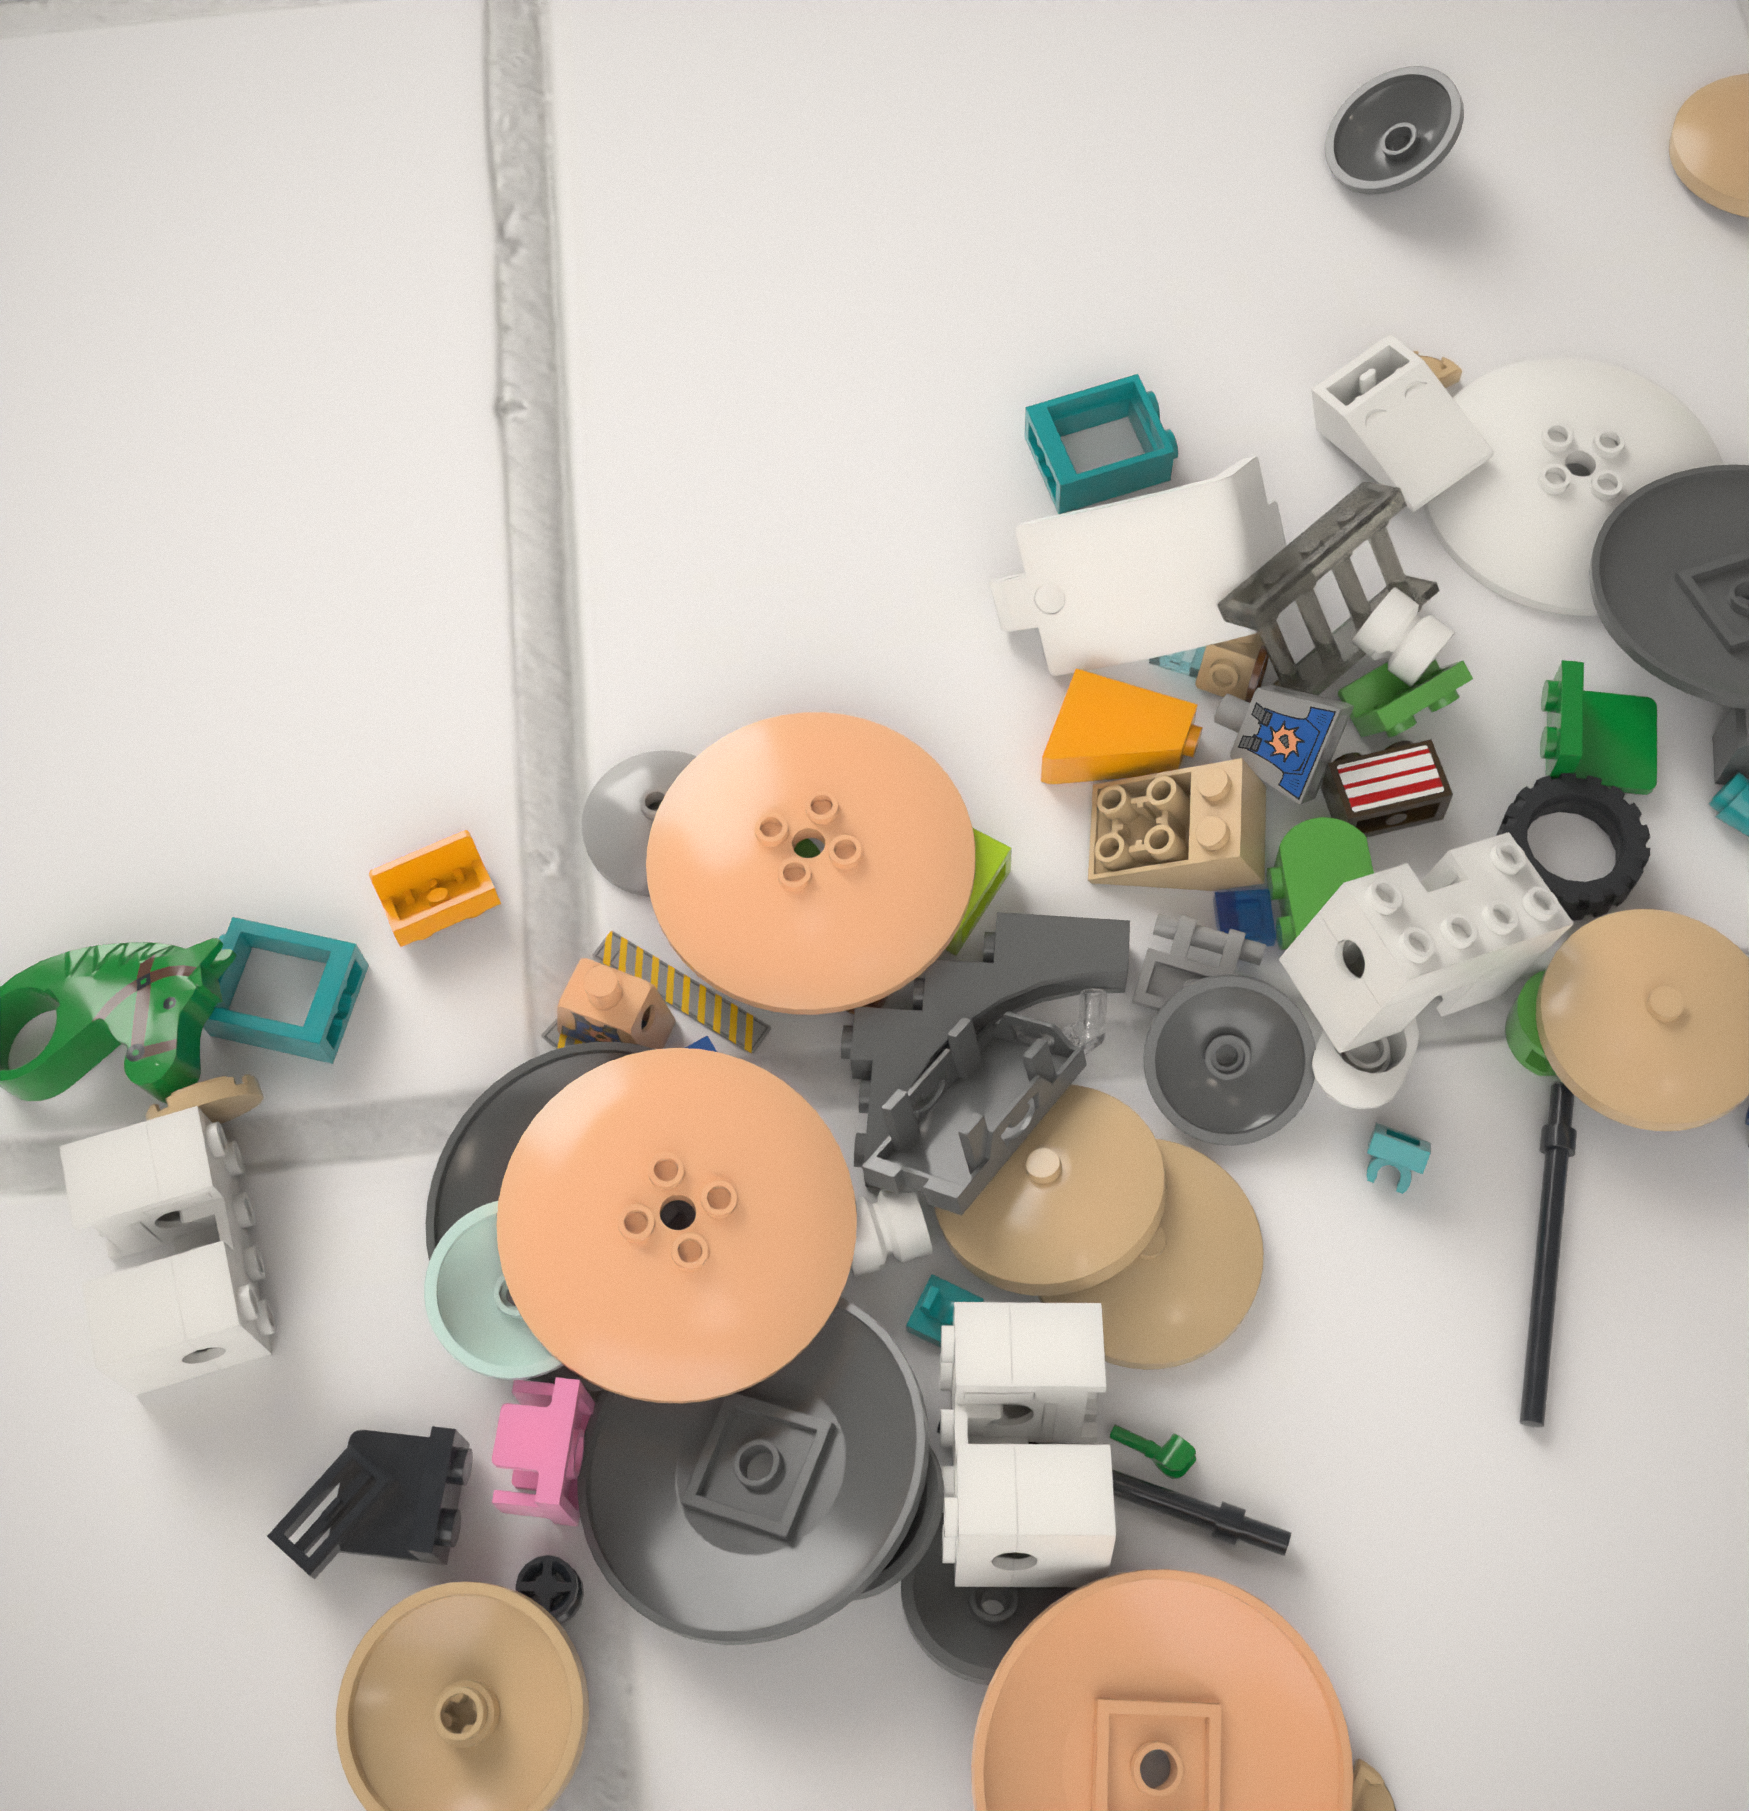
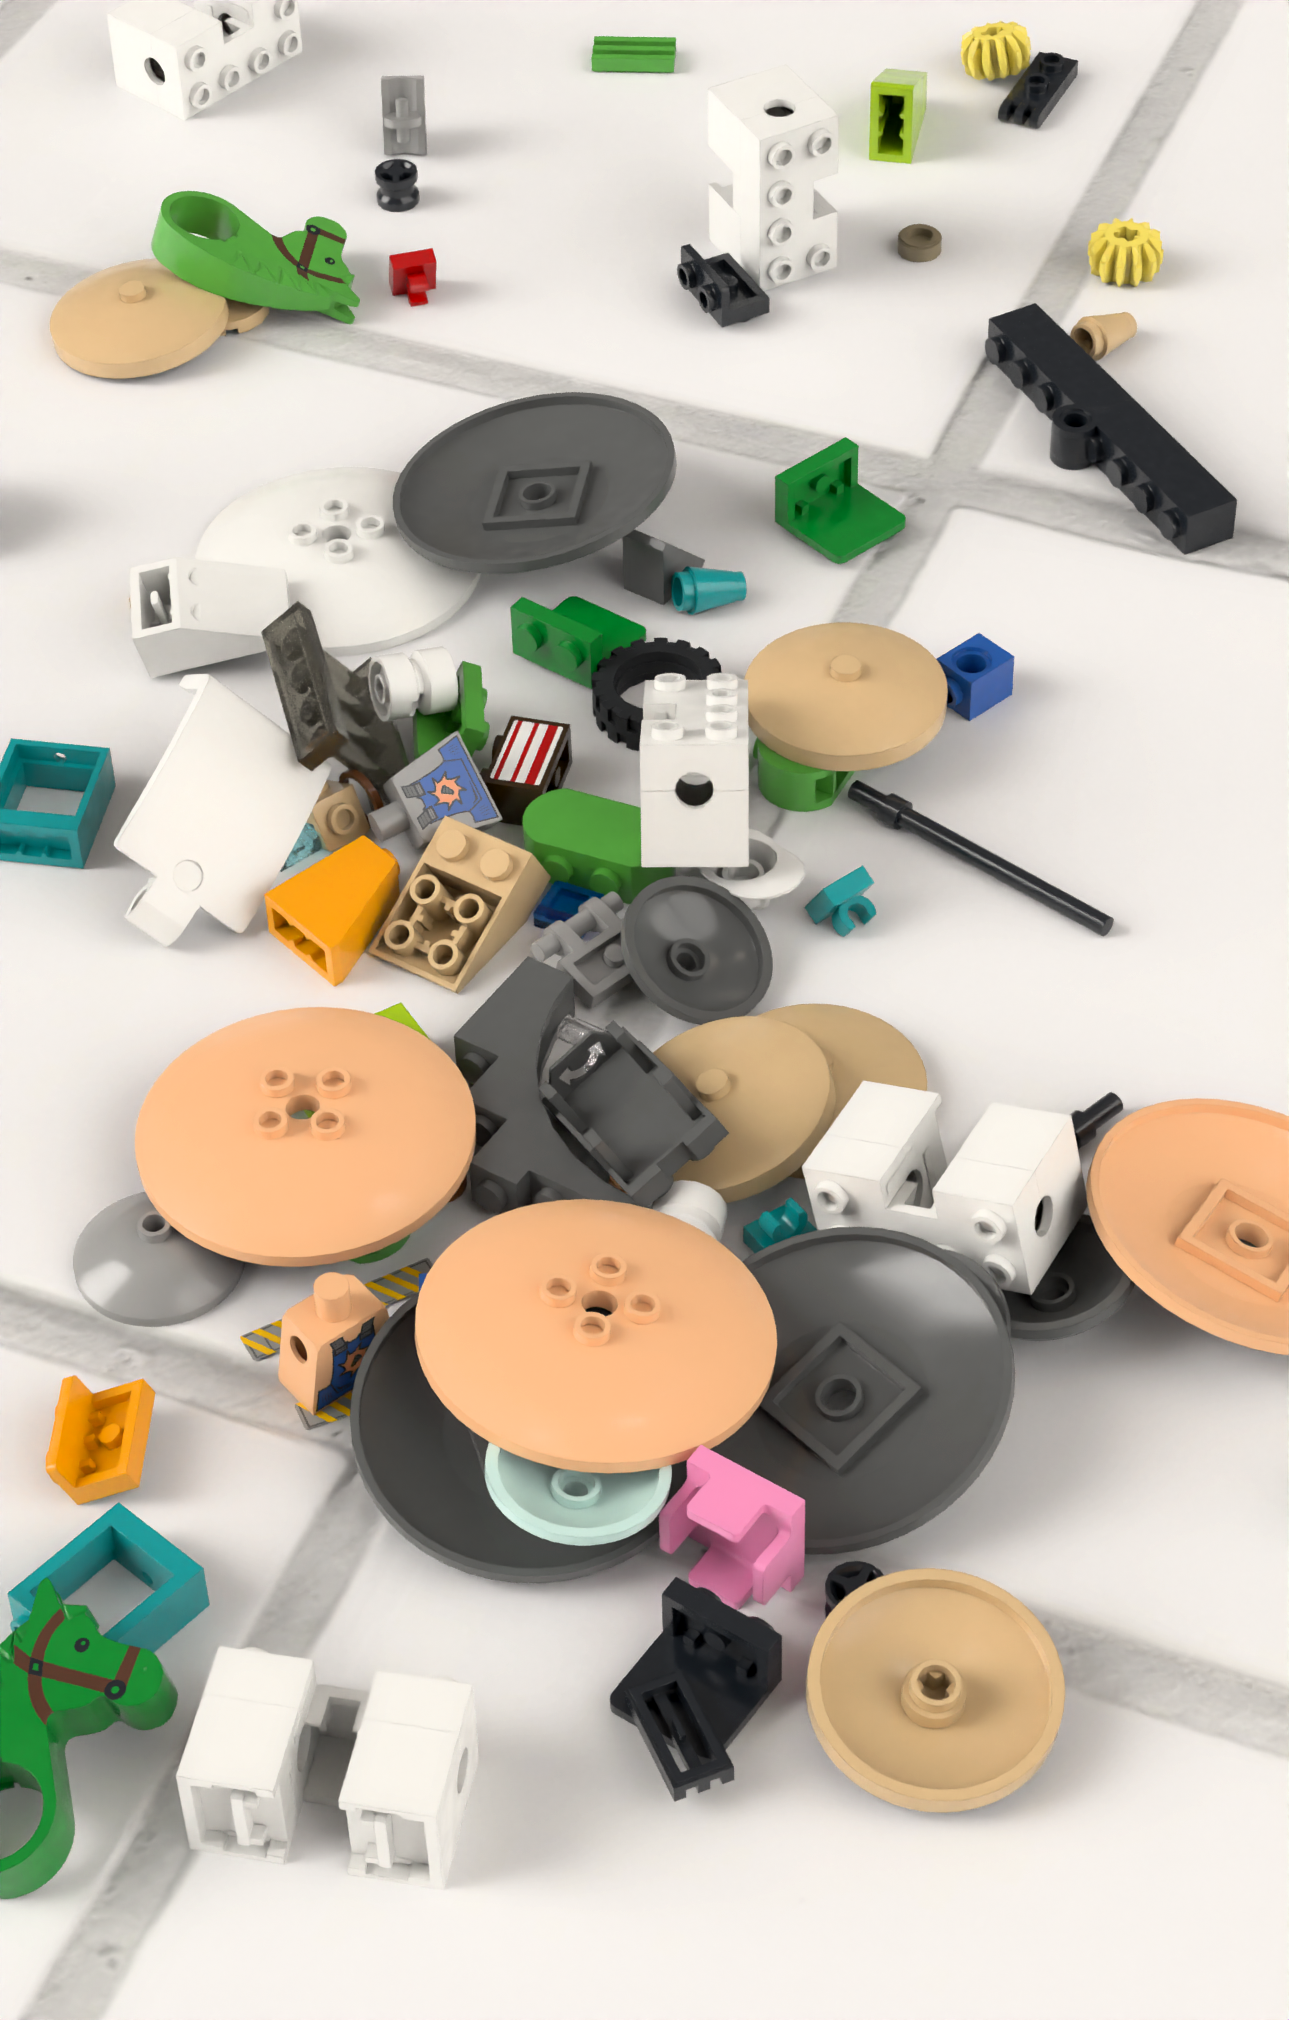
camera: 65 degrees left, 20 degrees down
(217, 1098) = (200, 1661): tan tile -> none

